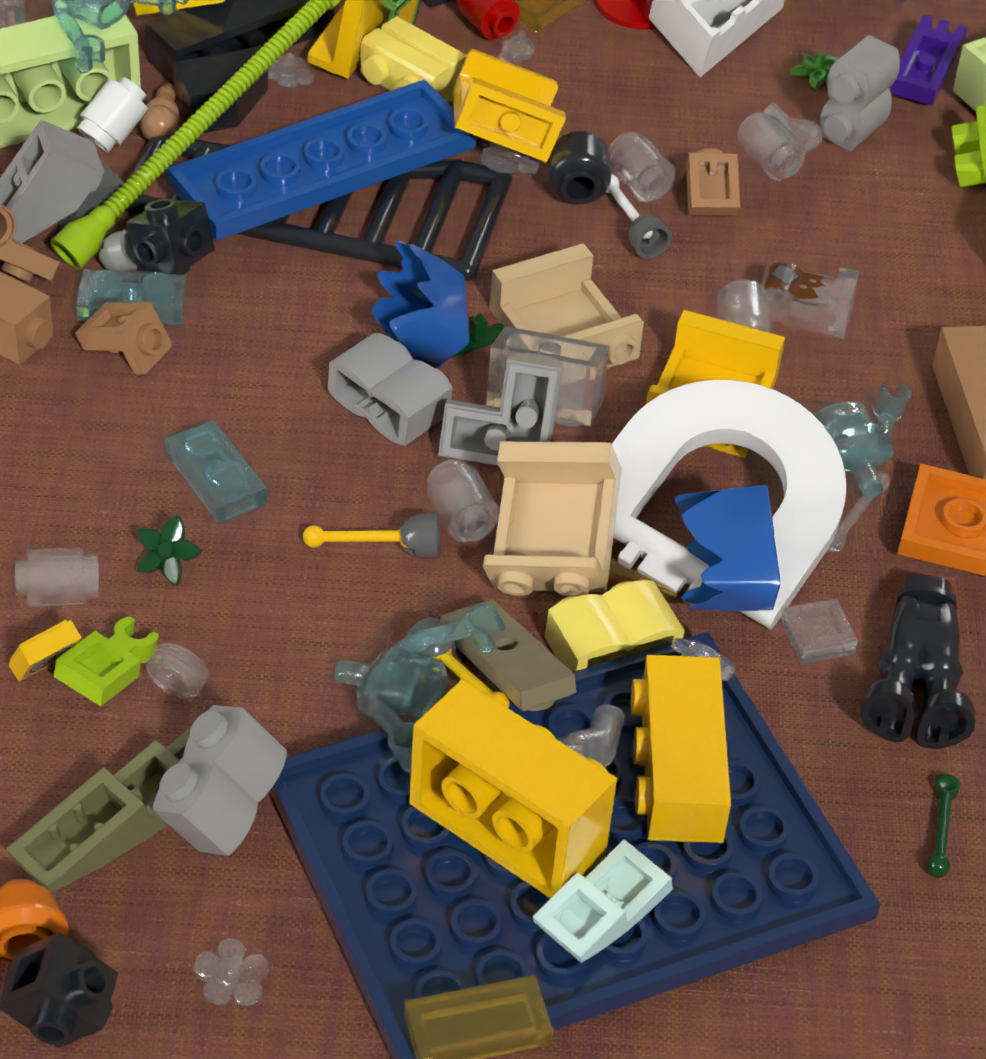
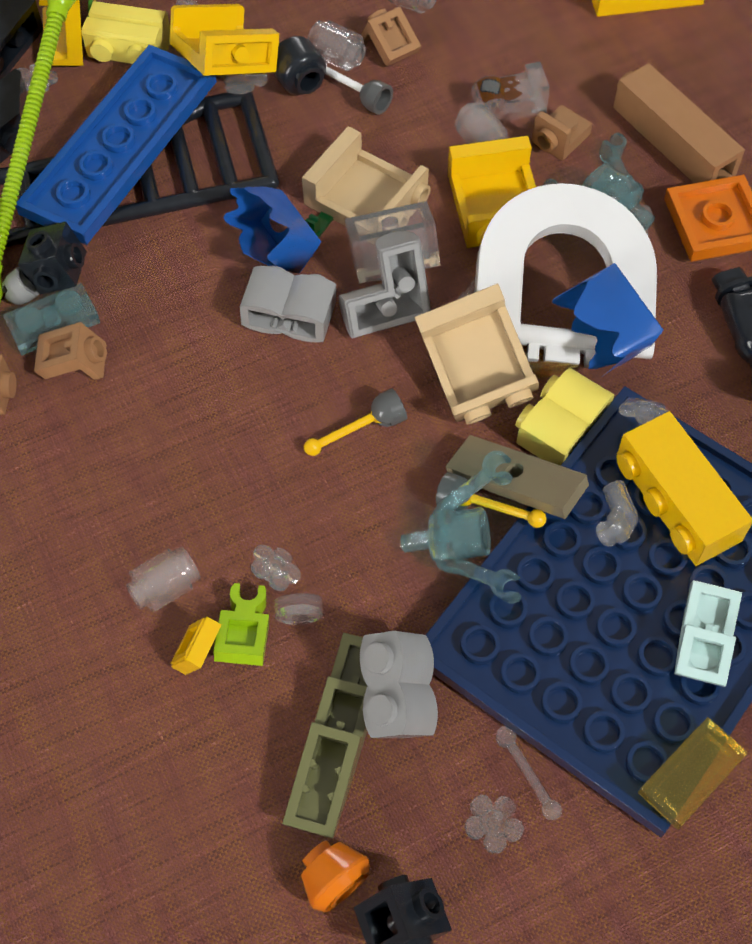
camera: 25 degrees left, 15 degrees up
(167, 549) = (222, 514): dark green plant -> none
(184, 624) = (275, 567): none -> clear plant
(216, 471) = (209, 430): clear light blue plate -> none
(309, 907) = (506, 738): none -> clear hinge
(462, 501) = (398, 368): clear brick -> none
(510, 789) = (613, 589): yellow brick -> none
(819, 631) = (682, 344): clear tile -> none
(841, 360) = (560, 131): none -> medium nougat bracket

